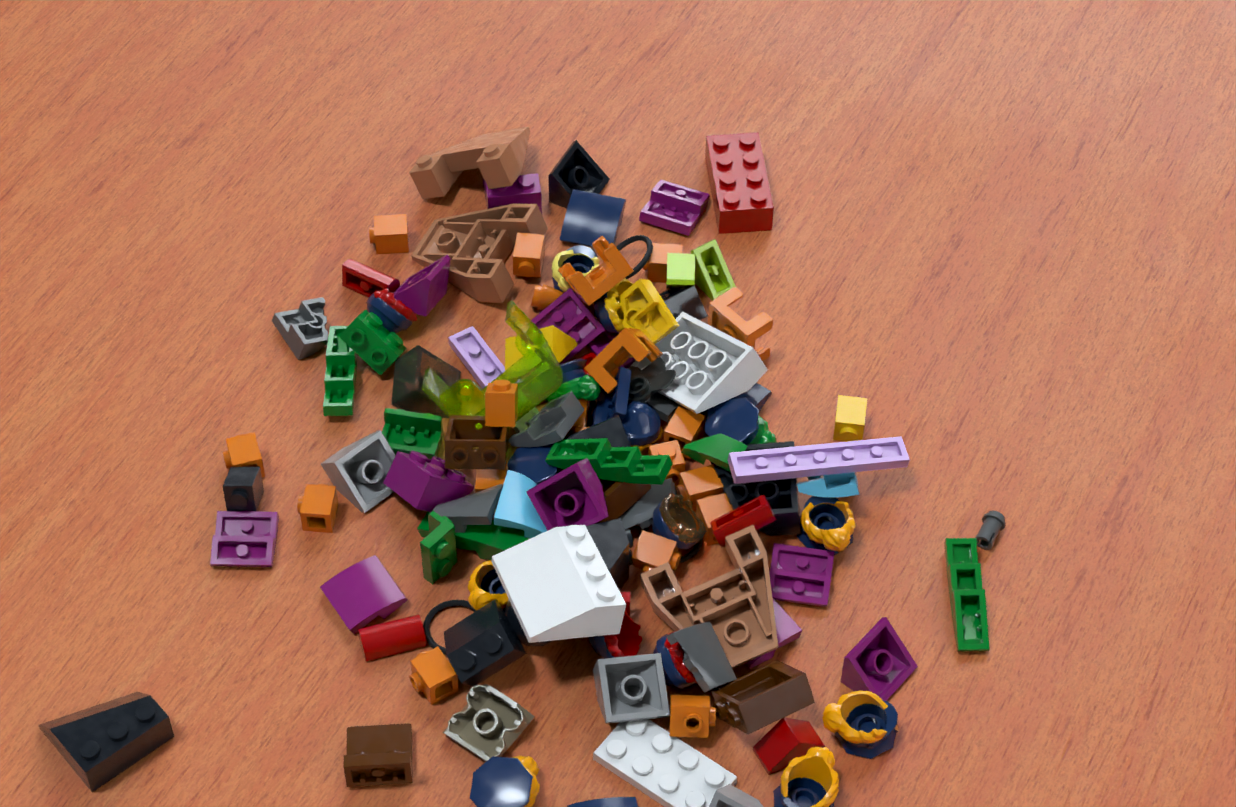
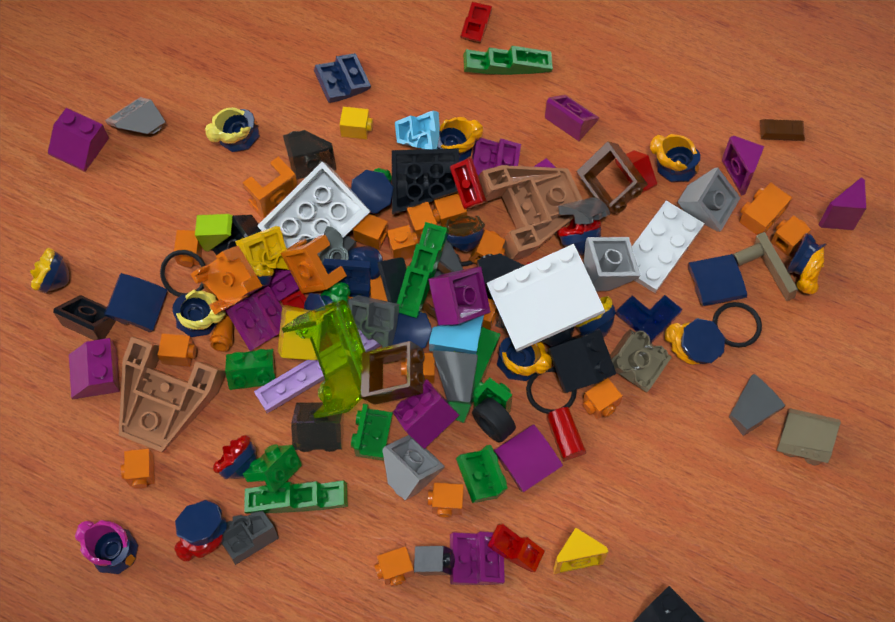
camera: 90 degrees left, 15 degrees up
(230, 627) = (579, 553): none -> yellow slope
(249, 576) = (516, 549): none -> red slope
(304, 211) = (107, 545): none -> piece
(309, 280) = (199, 530): none -> dark blue piece
(345, 541) = (482, 474): none -> green bracket
(366, 279) = (194, 481): red brick -> none
(378, 755) = (674, 433): reddish brown bracket -> none
(404, 551) = (494, 419): none -> black tyre
(425, 287) = (211, 432): magenta slope -> none
(493, 318) = (250, 368): none -> green bracket
(496, 154) = (49, 390): nougat wedge -> none
(501, 404) = (364, 349): orange brick -> none
(545, 741) = (650, 321): none -> clear blue plate
(549, 673) = (603, 321): none -> dark blue hair
(632, 145) = (49, 272): none -> hair
(674, 207) = (120, 243): magenta slope -> none
(691, 716) = (626, 224): orange brick -> none
(711, 270) = (192, 208): lime slope -> none
(714, 448) = (402, 199): green slope -> none
(739, 183) = (101, 192): brick -> none
(791, 360) = (307, 151): none -> clear smoke slope
(814, 159) = (76, 139): none -> magenta slope
(818, 460) = (415, 133): lavender plate -> none
(833, 296) = (233, 128): none -> piece
(844, 208) = (138, 116): none -> light grey slope
(862, 723) = (619, 123): piece -> none
(924, 409) = (342, 78): none -> dark blue slope
(992, 524) = (452, 44): dark grey pin -> none
(1028, 561) = (476, 22): none -> red slope

